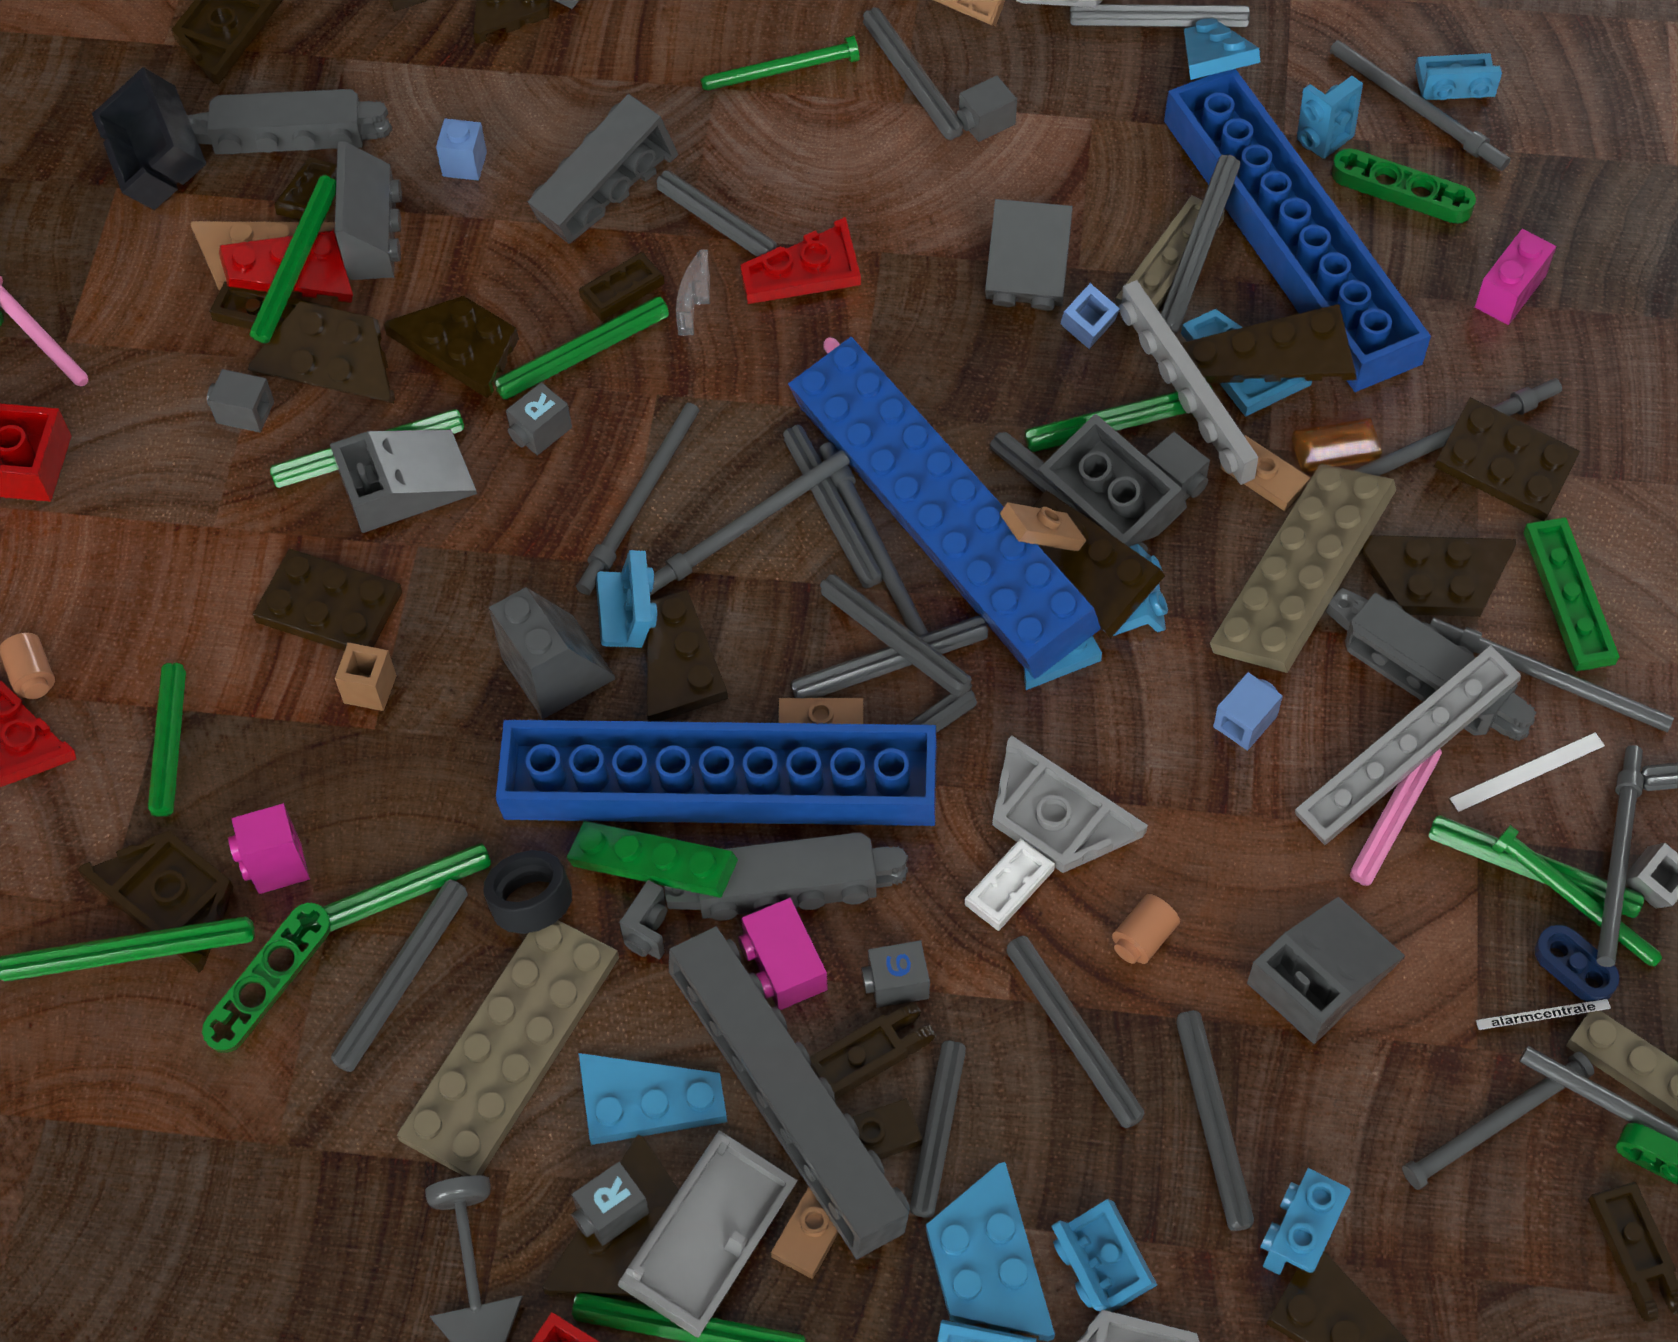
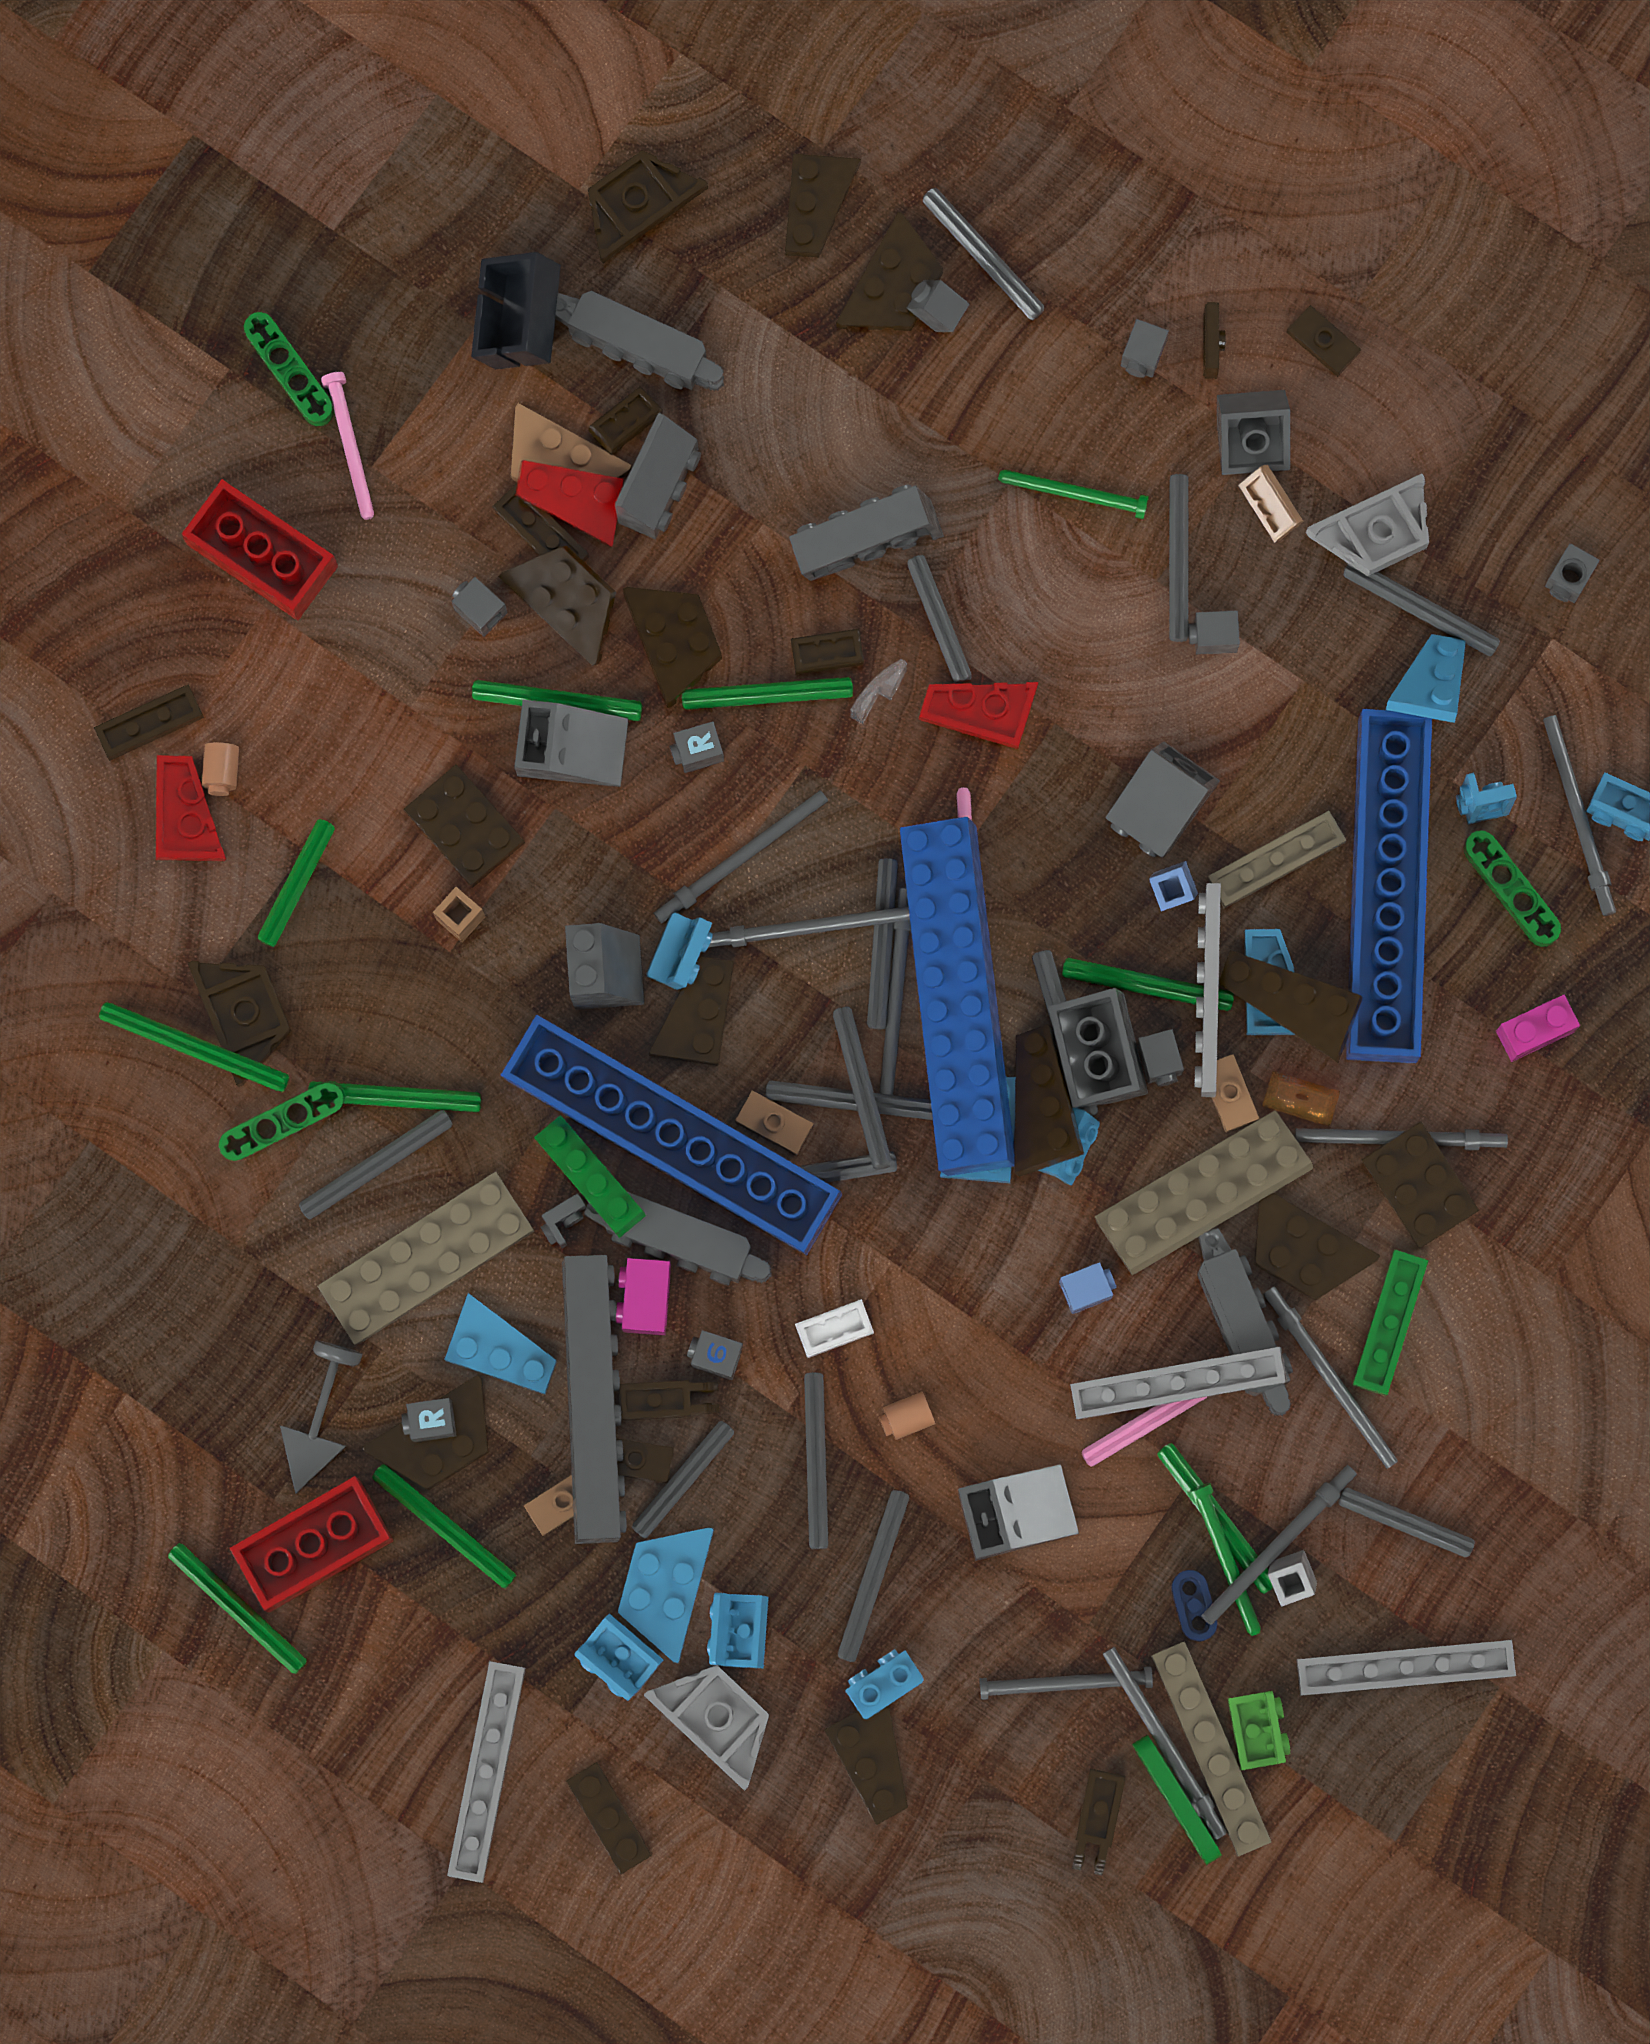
camera: 30 degrees right, 20 degrees up
(268, 849) = (325, 1024): dark pink brick -> none
(294, 260) = (576, 502): green axle -> none
(461, 149) = (765, 447): medium blue brick -> none
(538, 911) = (491, 1176): black tyre -> none
(707, 1234) = (488, 1471): light grey container -> none
(1042, 526) = (1012, 1069): medium nougat plate -> none
(1058, 811) = (900, 1290): light grey wing -> none
(1200, 241) = (1299, 866): dark grey axle -> none
(1526, 772) = (1264, 1442): white sticker -> none
(1543, 1014) = (1147, 1627): white sticker -> none

